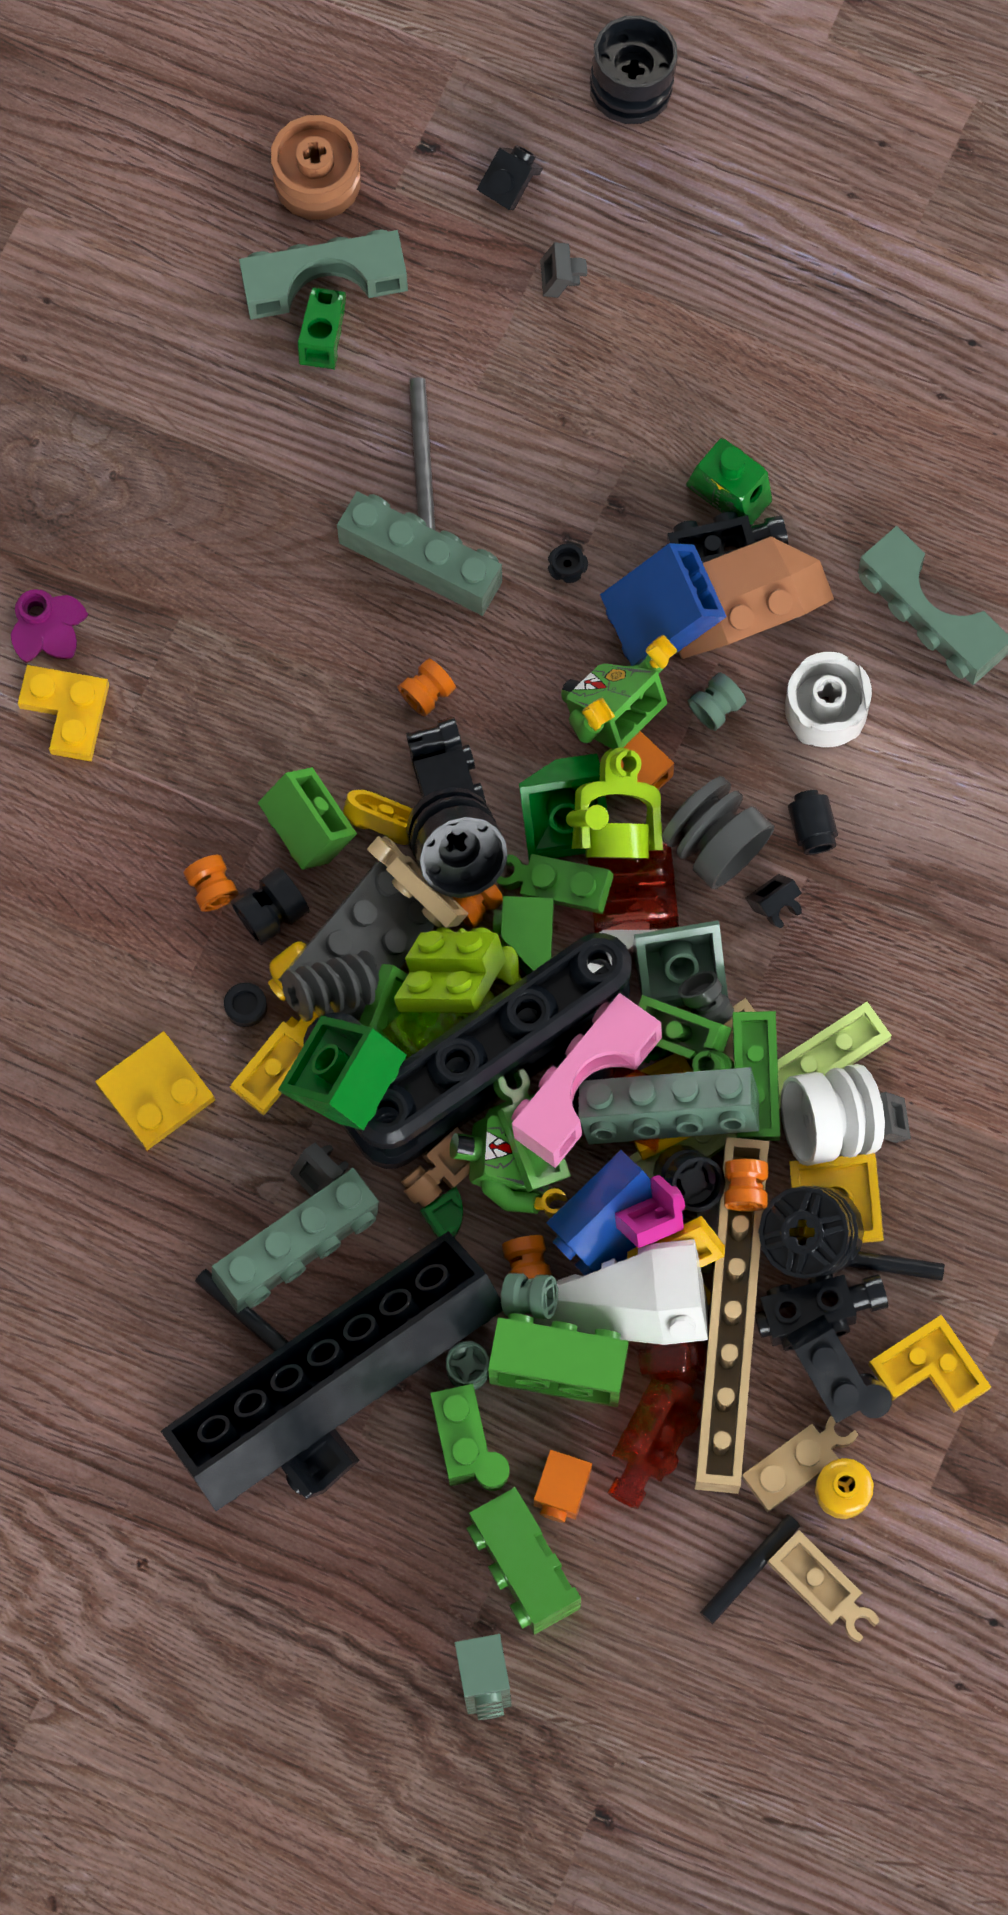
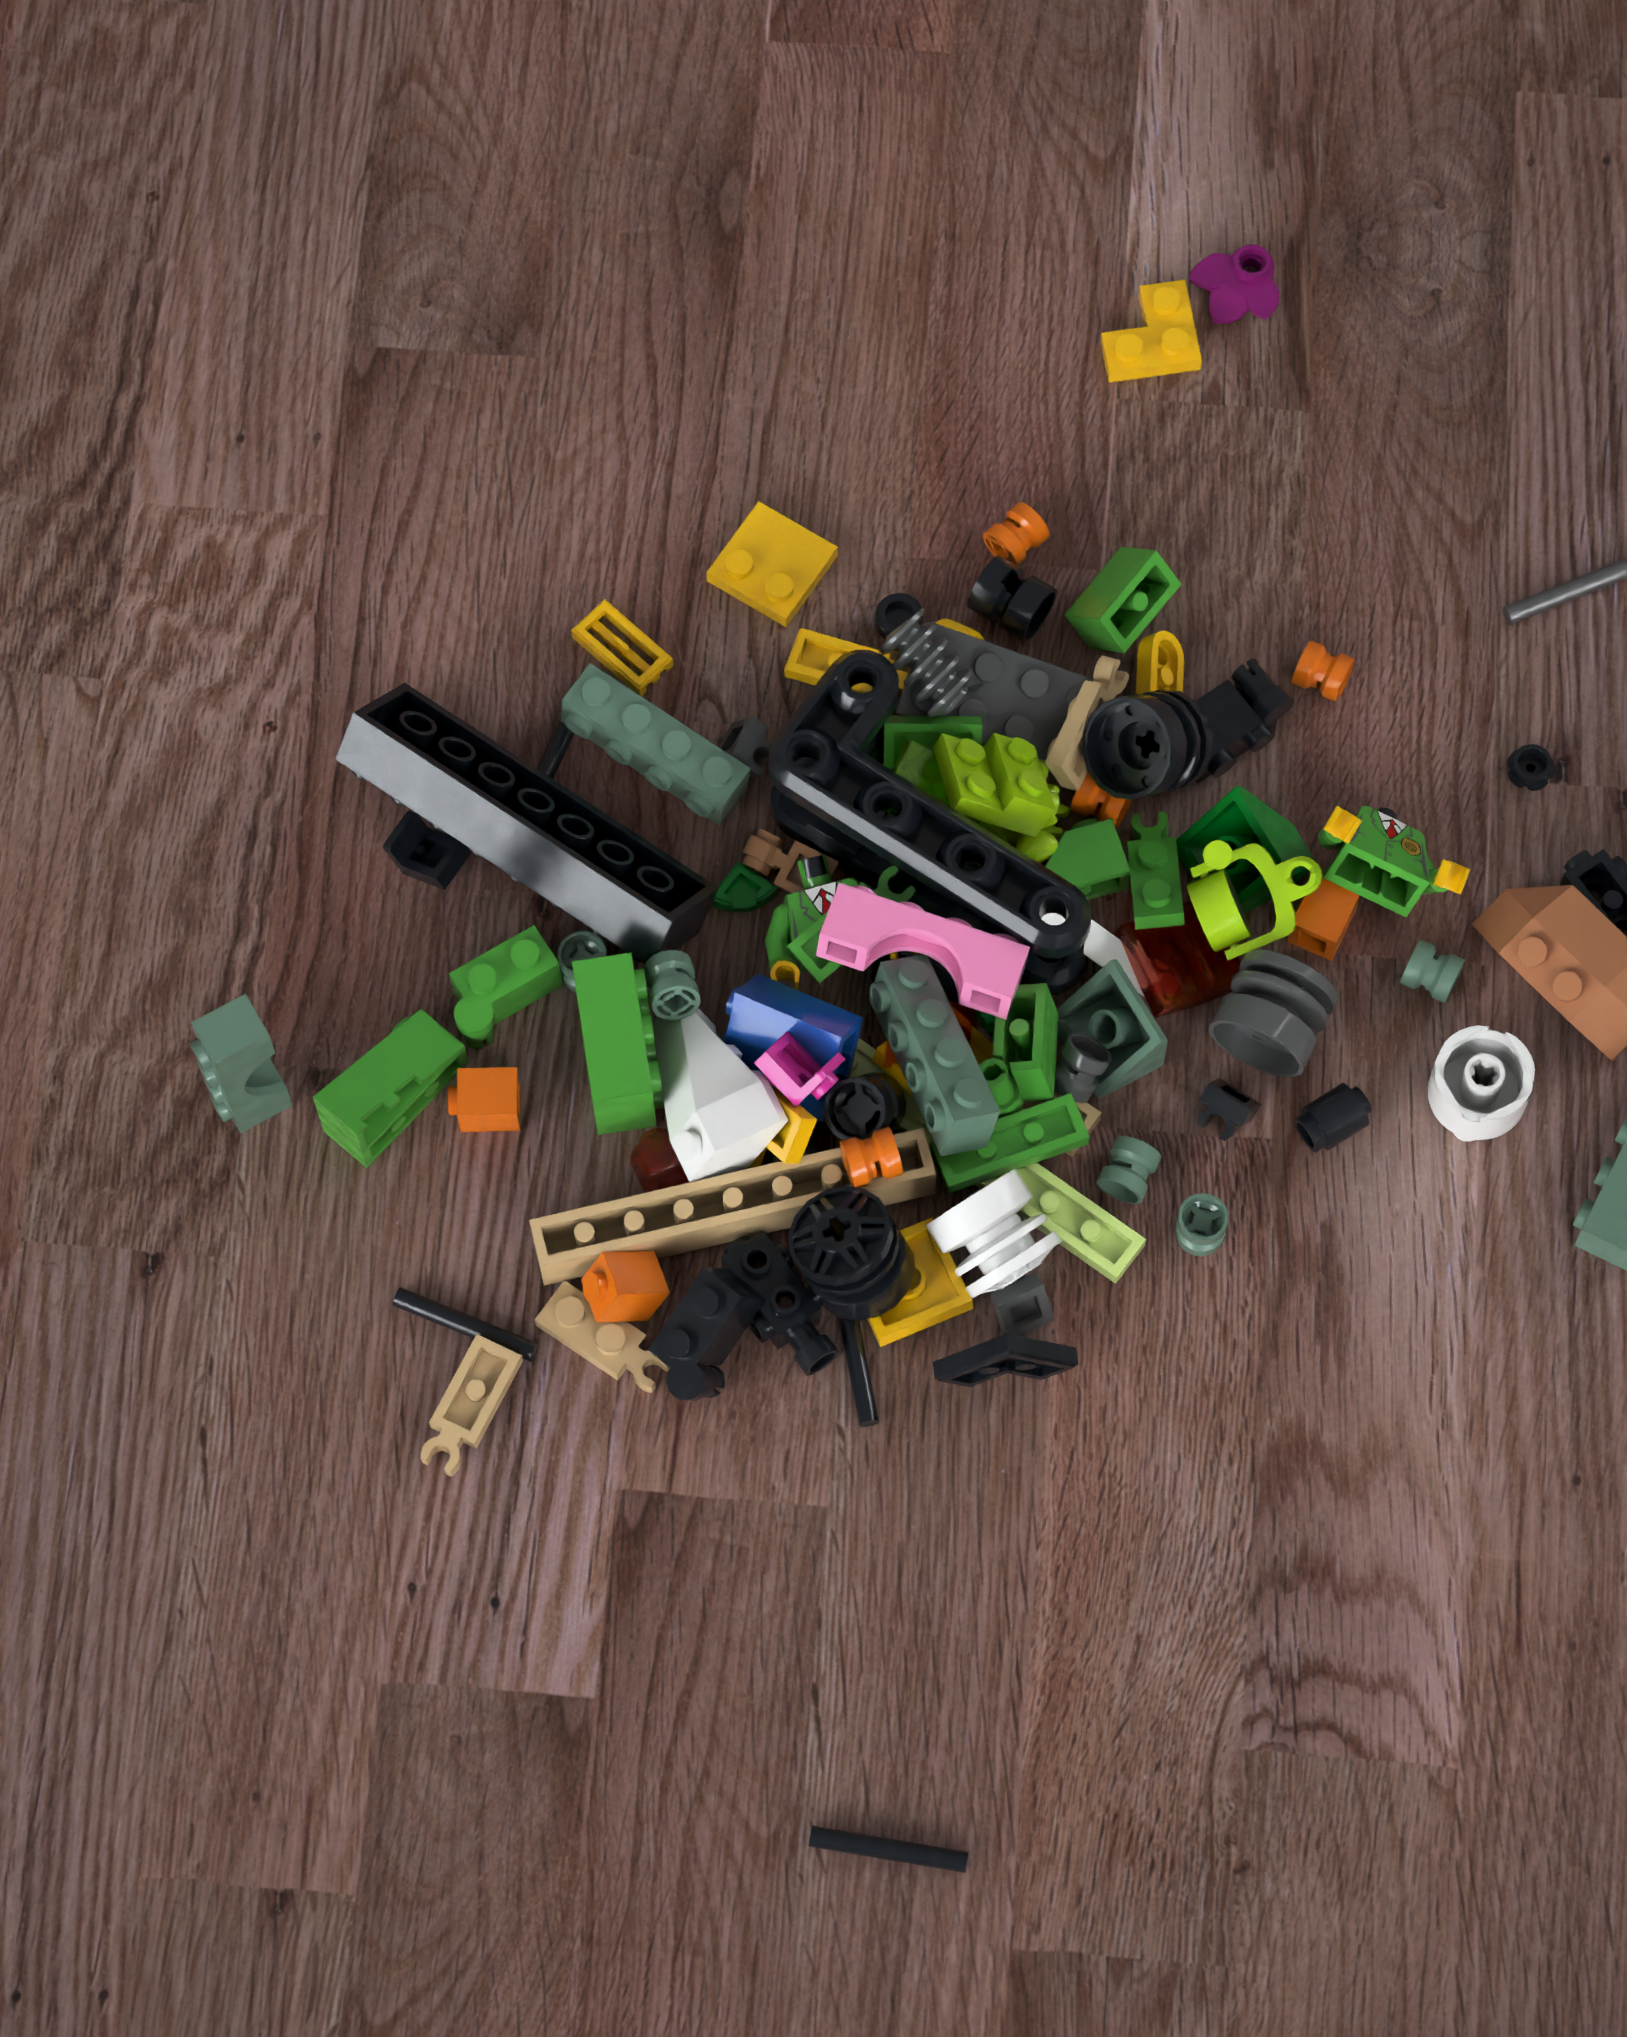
camera: 70 degrees right, 5 degrees down
(192, 1255) = (649, 673): none -> yellow tile
(343, 1071) = (824, 691): green slope -> none
(420, 552) = (1474, 610): sand green brick -> none
(526, 1255) = (718, 982): orange wheel -> none
(653, 1438) = (566, 1170): clear red brick -> none
(663, 597) = (1518, 868): blue brick -> none
(771, 1424) = (625, 1286): none -> orange brick
(803, 994) = (1128, 1170): none -> sand green wheel
(846, 1503) = (584, 1402): yellow head -> none
(868, 945) = (1202, 1214): none -> sand green wheel
(935, 1354) = (768, 1436): yellow plate -> none
(938, 1146) = (1005, 1355): none -> black tile

